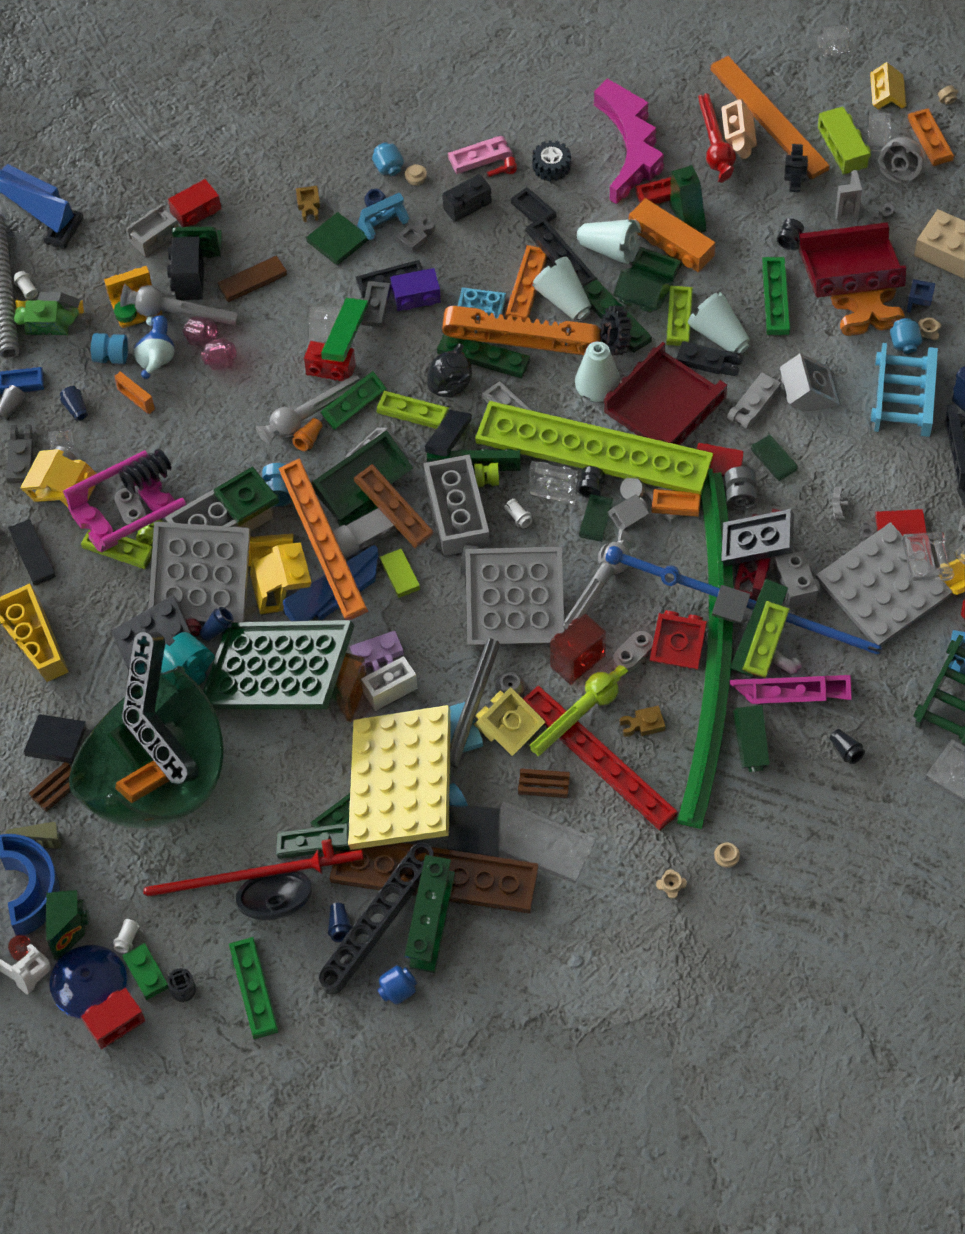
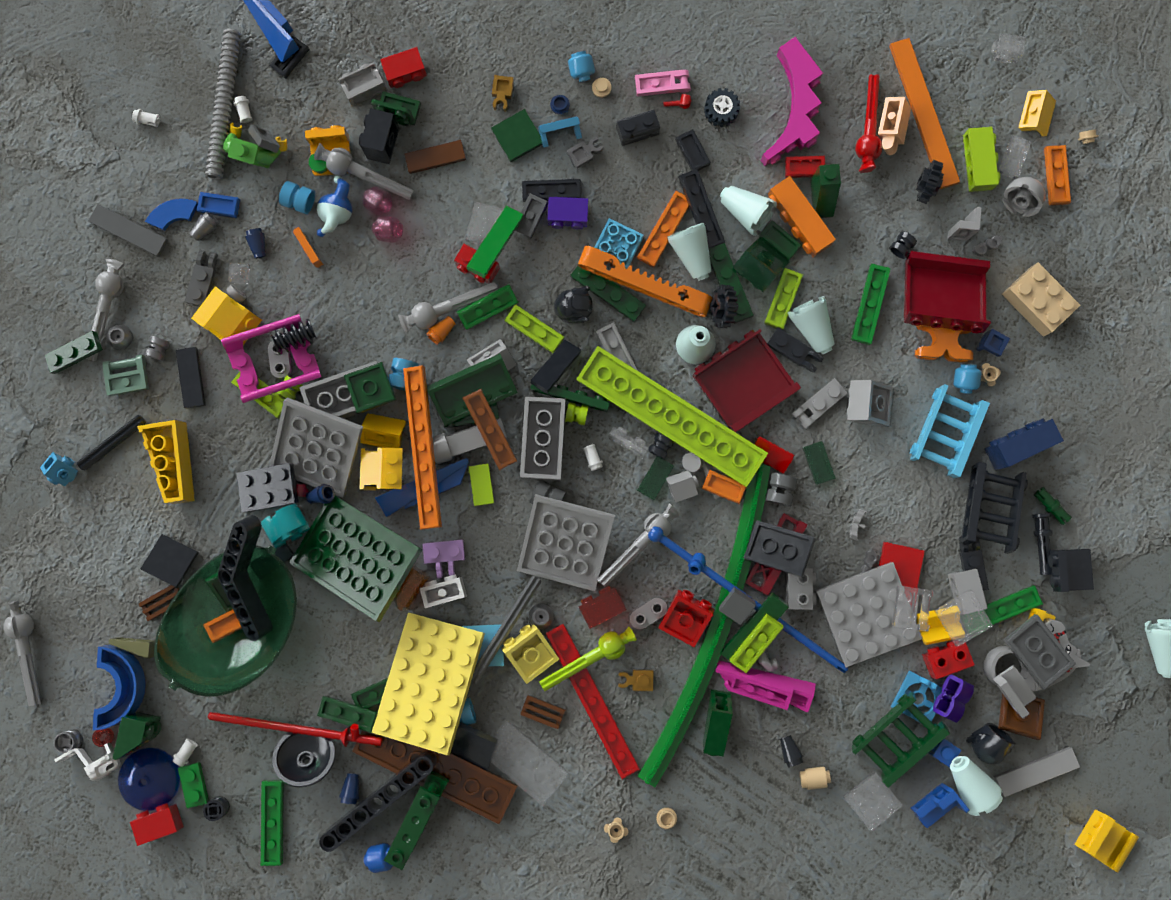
camera: 15 degrees right, 25 degrees up
(884, 765) = (815, 778): none -> tan brick

